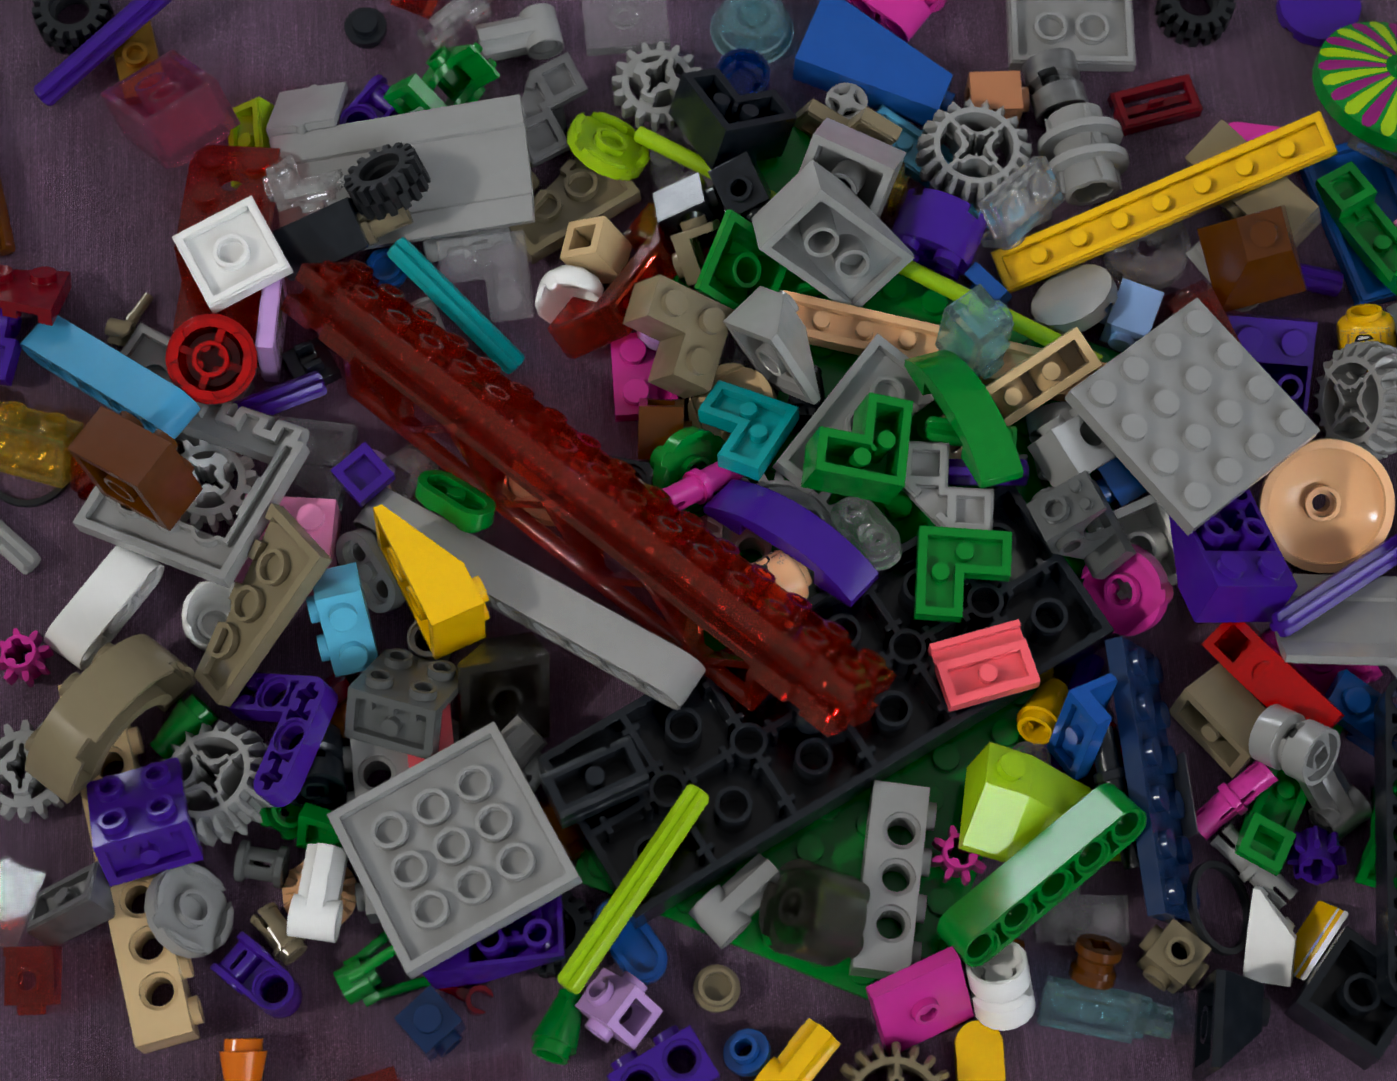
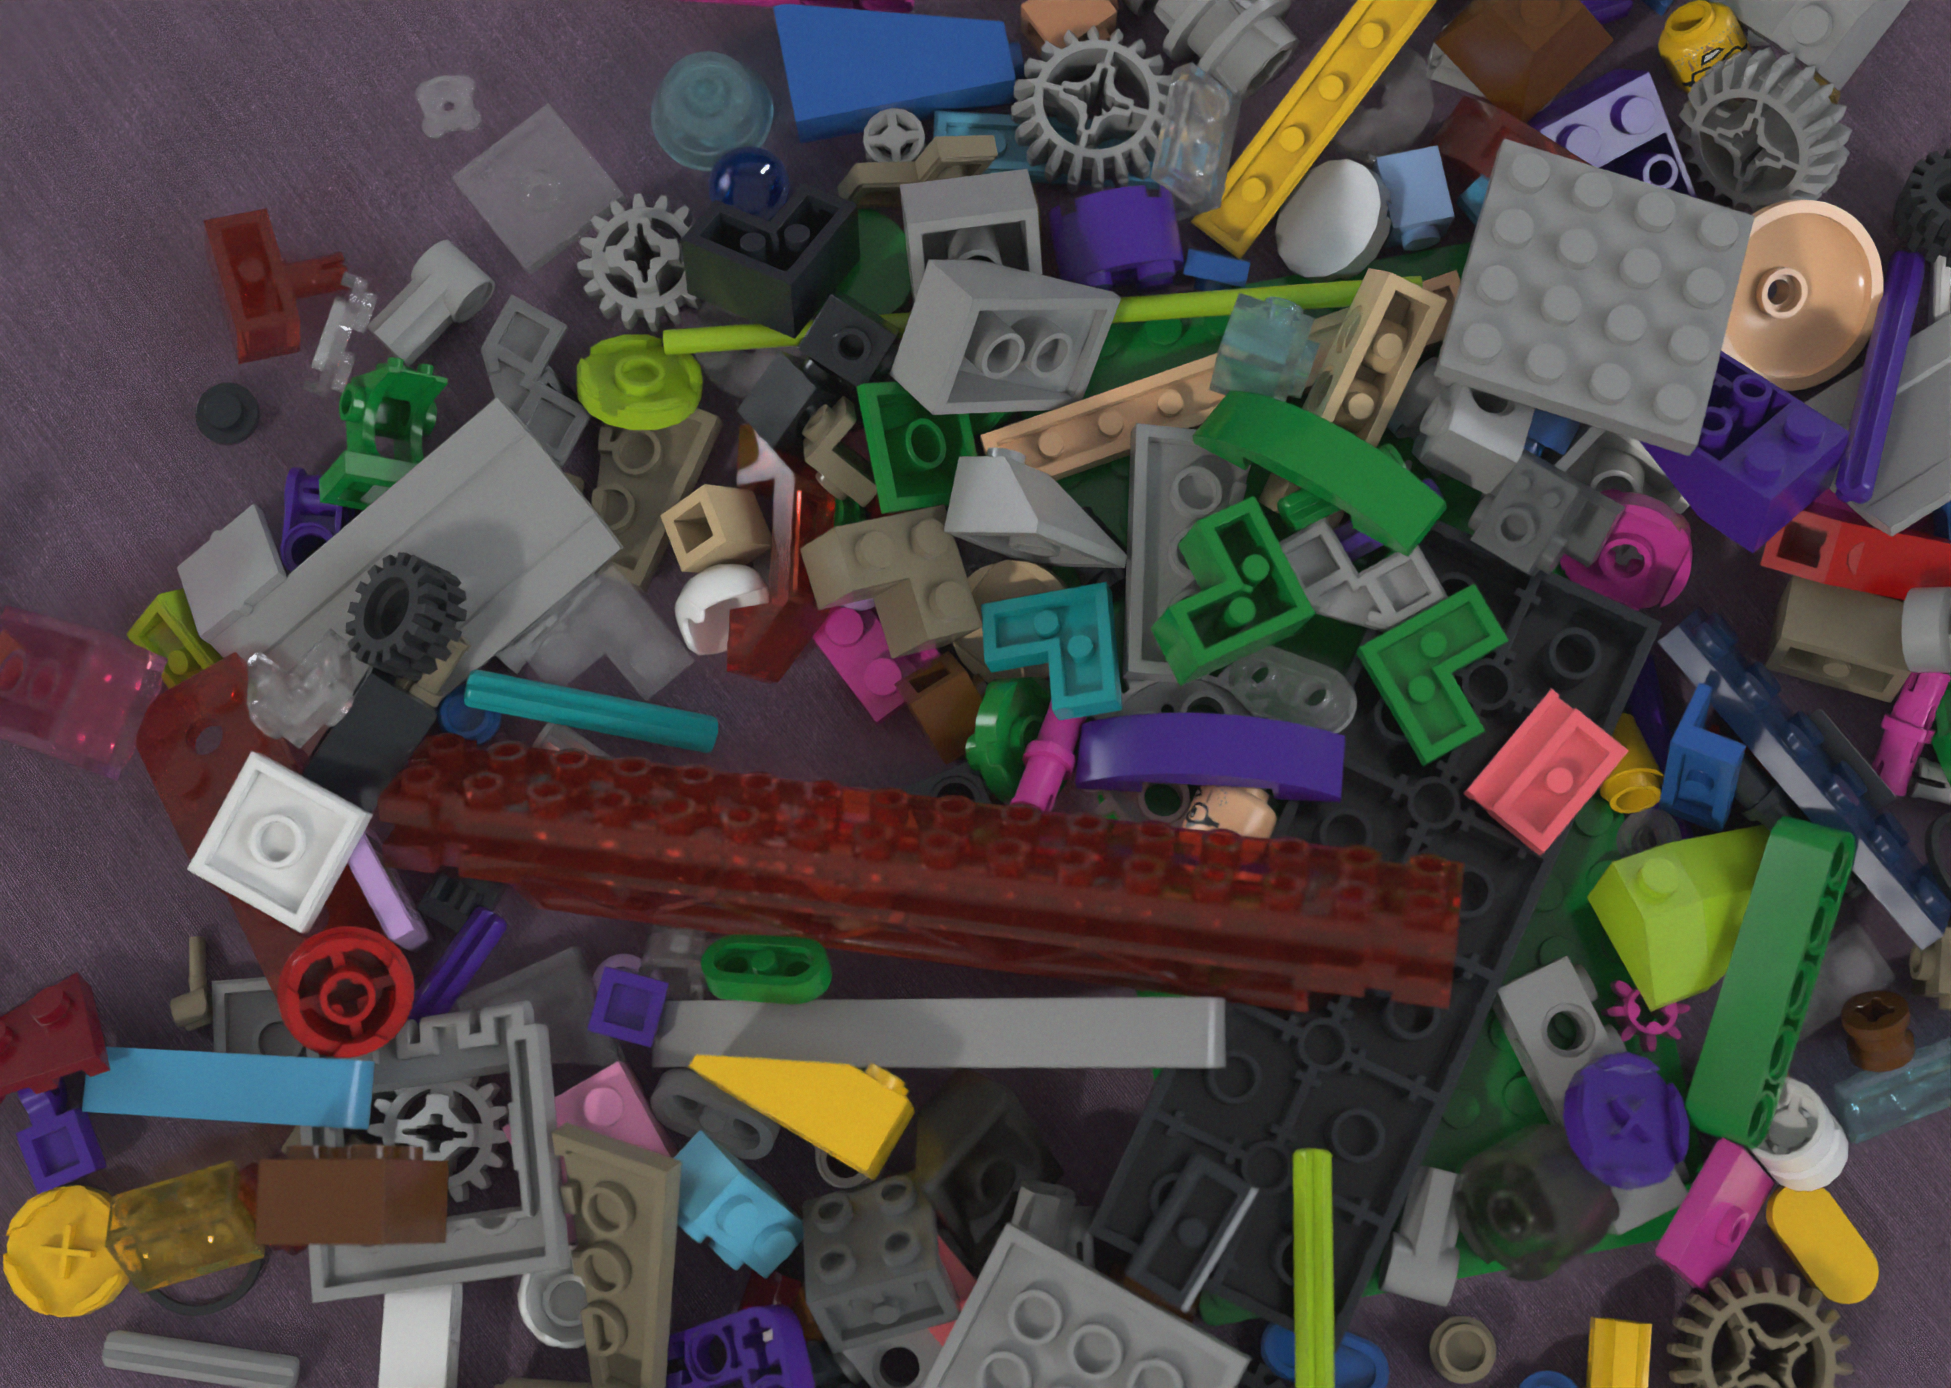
camera: 25 degrees left, 10 degrees up
(899, 897) = (1625, 1121): none -> dark purple tile

